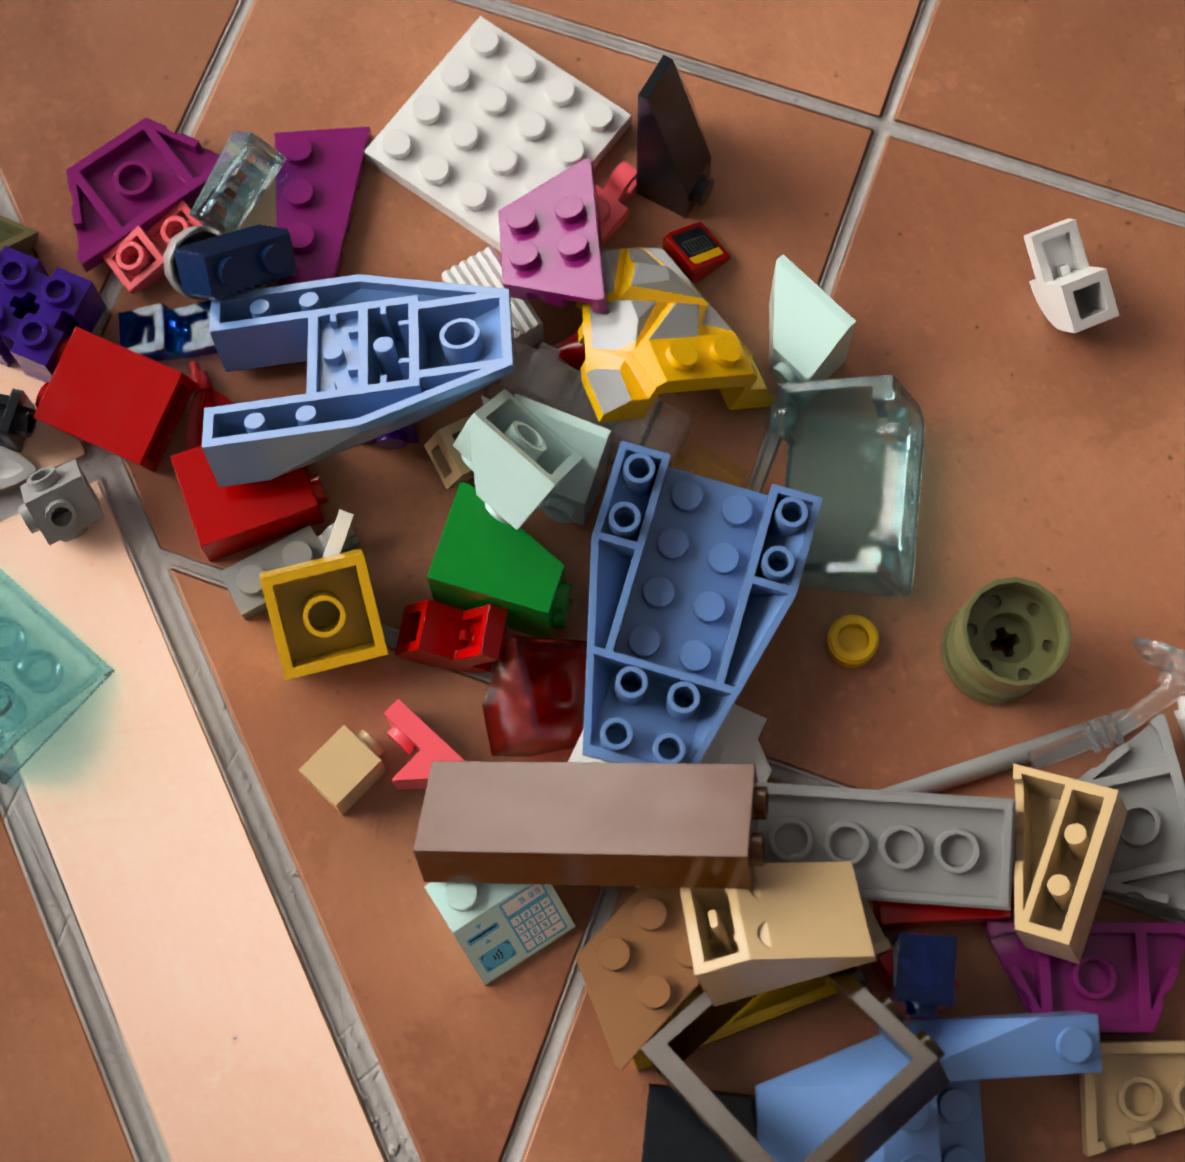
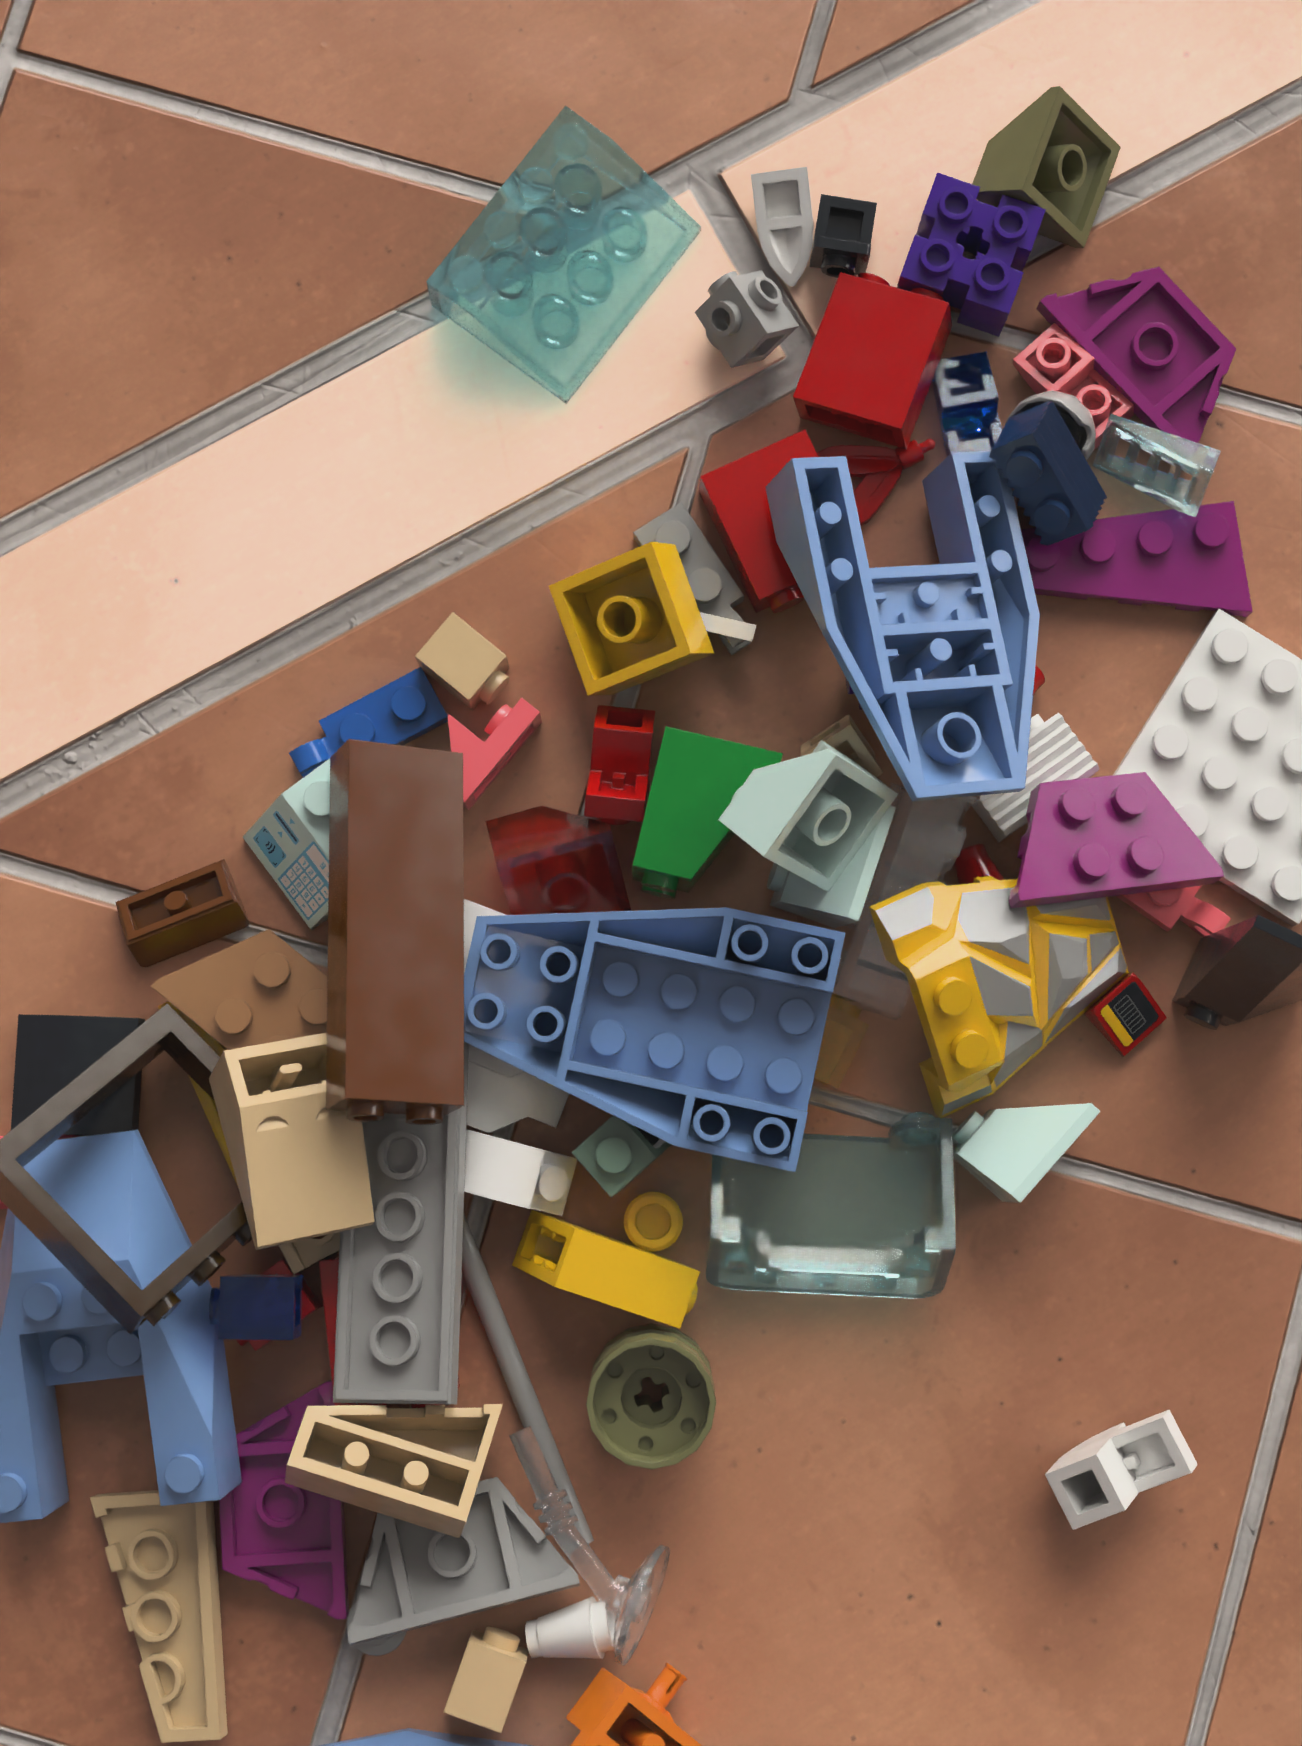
camera: 80 degrees right, 10 degrees up
(389, 854) = (388, 716): none -> blue plate
(551, 1045) = (182, 914): none -> reddish brown slope
(794, 661) = (618, 1153): none -> sand green slope
(808, 746) = (517, 1173): none -> white brick
(893, 680) = (606, 1269): none -> yellow slope

